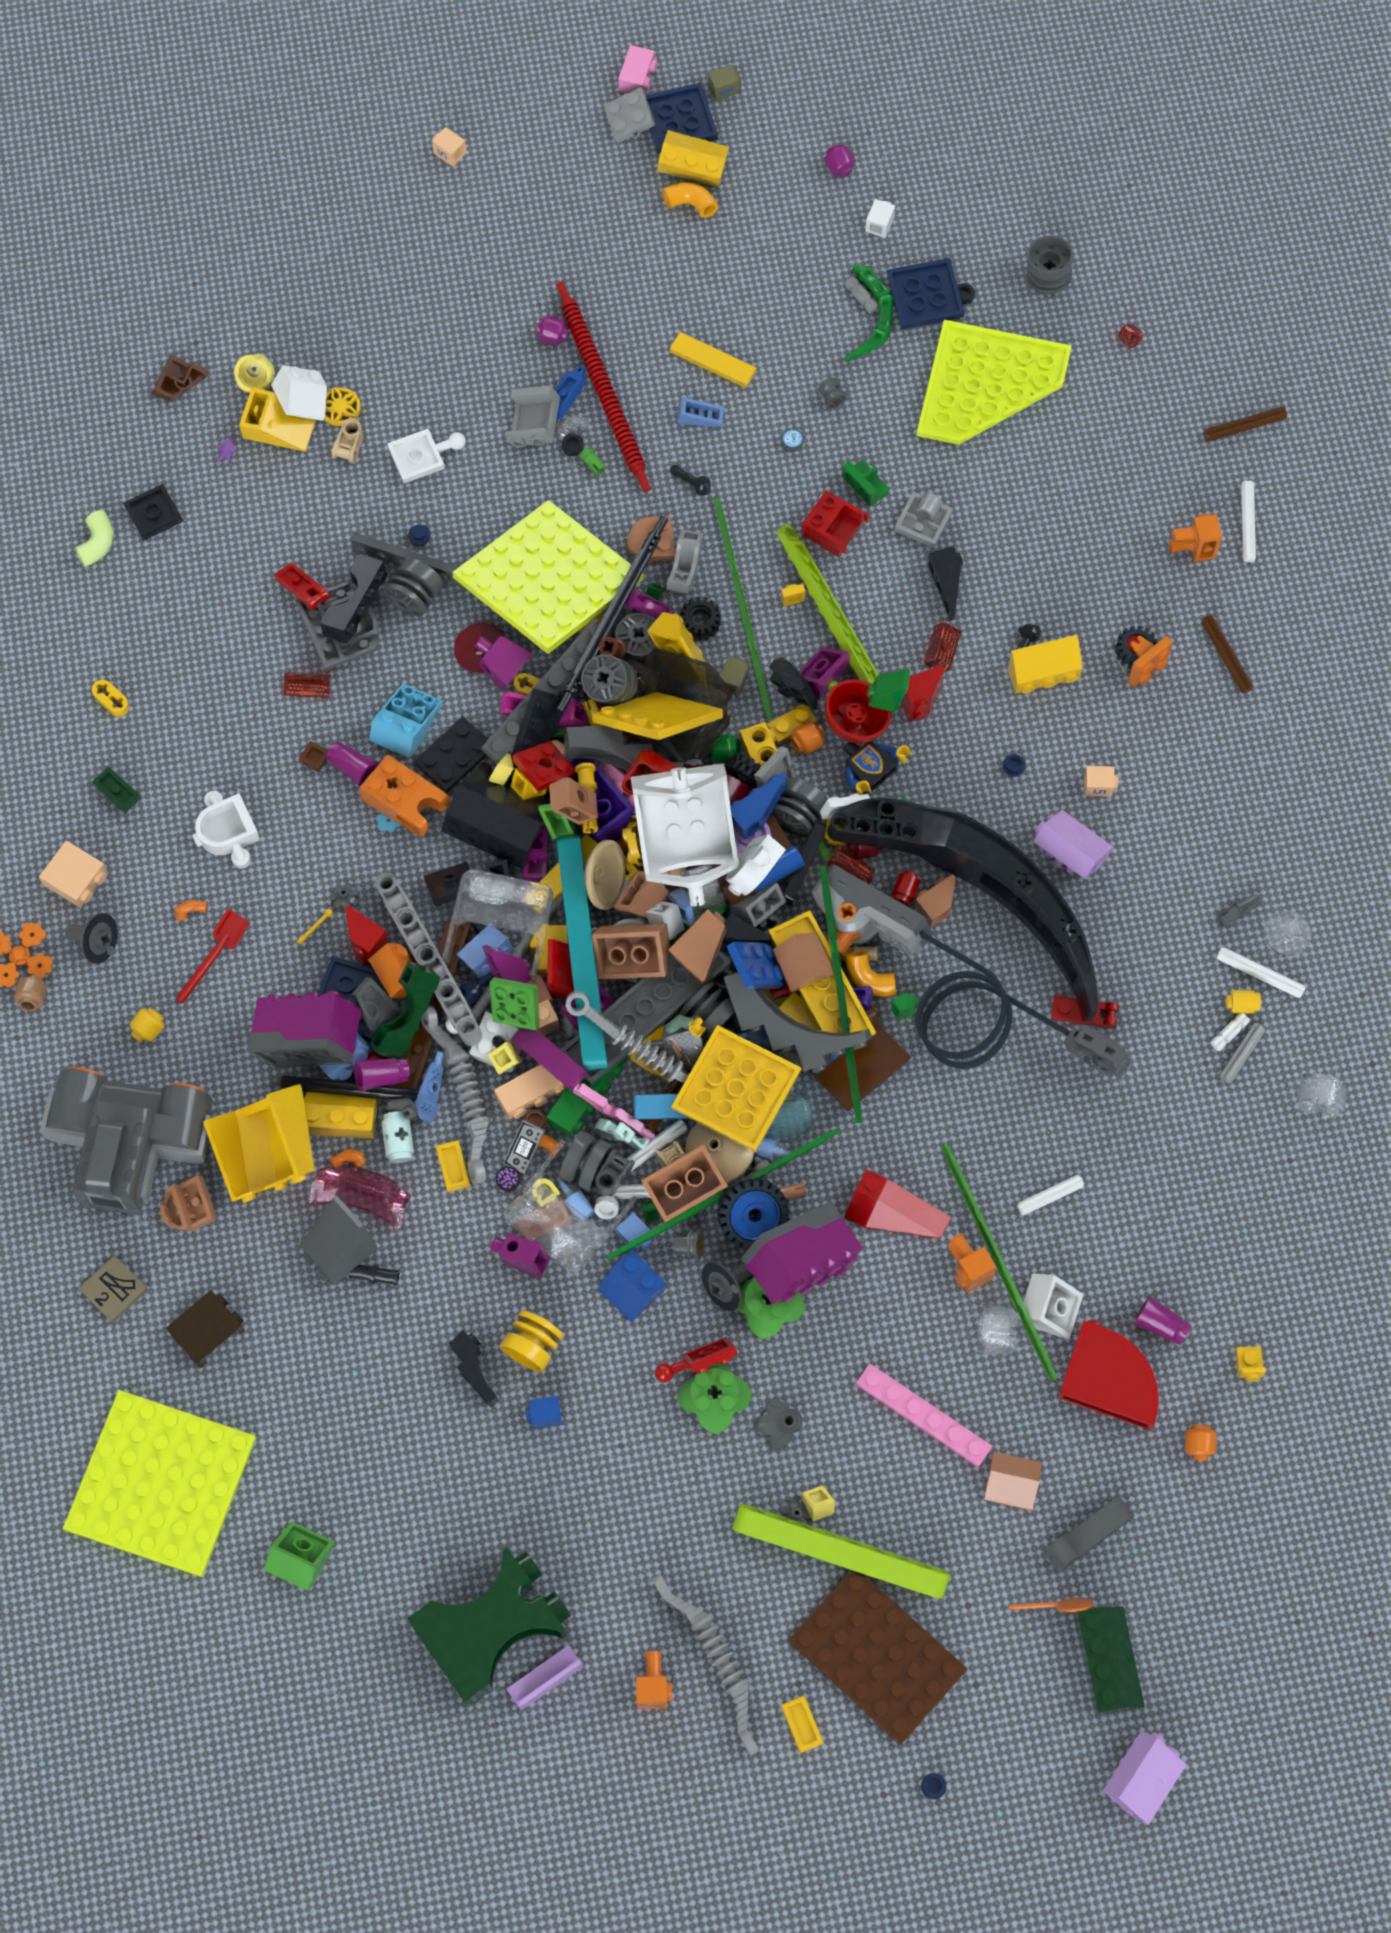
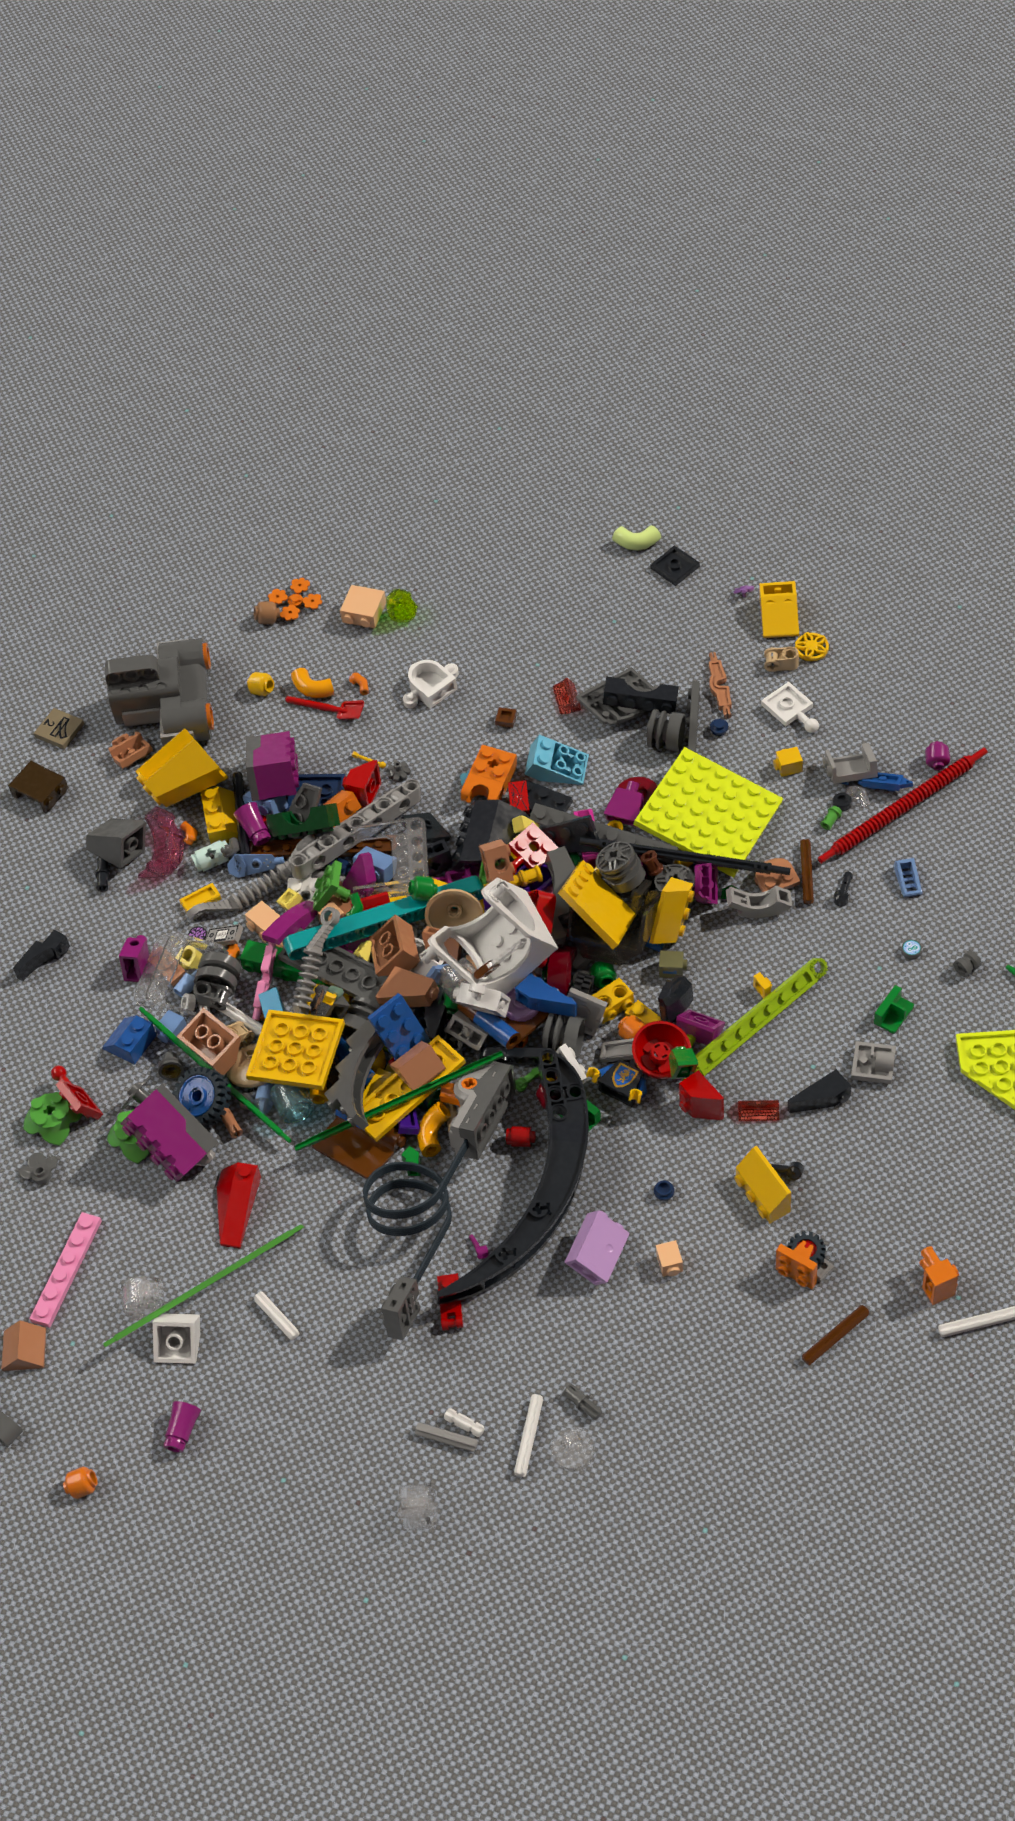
camera: 80 degrees right, 15 degrees down
(95, 829) = (401, 606): none -> clear neon green hair
(96, 938) = (316, 633): piece -> none
(107, 701) = (509, 586): yellow beam -> none
(116, 790) = (439, 612): dark green plate -> none
(177, 378) = (792, 543): reddish brown slope -> none
(177, 967) = (310, 687): none -> light orange cylinder
(248, 378) = (811, 583): light yellow piece -> none
(301, 392) = (804, 612): white slope -> none
(301, 586) = (642, 665): red plate -> none
(351, 762) = (507, 737): magenta plant -> none
(369, 518) = (720, 692): none -> nougat piece
(446, 770) = (519, 795): none -> red tile
(500, 478) = (788, 761): none -> yellow brick
(533, 1337) = (65, 980): yellow wheel -> none
(537, 1118) = (247, 935): dark orange plate -> none
(544, 1412) = (16, 1009): blue brick -> none
(560, 976) = (357, 904): none -> green arm
(567, 895) = (422, 888): none -> green head
(611, 1132) = (247, 988): light aqua piece -> none
(614, 988) = (364, 950): none -> light yellow slope
(654, 507) = (806, 867): none -> reddish brown axle
(701, 607) = (716, 919): black tyre -> none
(713, 360) = (963, 873): yellow tile -> none
(723, 838) = (492, 965): none -> piece
(743, 608) = (754, 950): bright green piece -> none
(829, 758) = (616, 1050): none -> light grey tile
(833, 523) = (840, 995): red piece -> none
(850, 863) = (525, 1090): clear red slope -> none
(936, 902) = (516, 1164): nougat slope -> none
(973, 1267) = (192, 1263): orange brick -> none
(1033, 966) = (481, 1251): none -> magenta hand
(1111, 1377) = (123, 1398): red brick -> none
(1243, 1001) = (493, 1424): yellow brick -> none
(1250, 1363) = (160, 1509): yellow bracket -> none

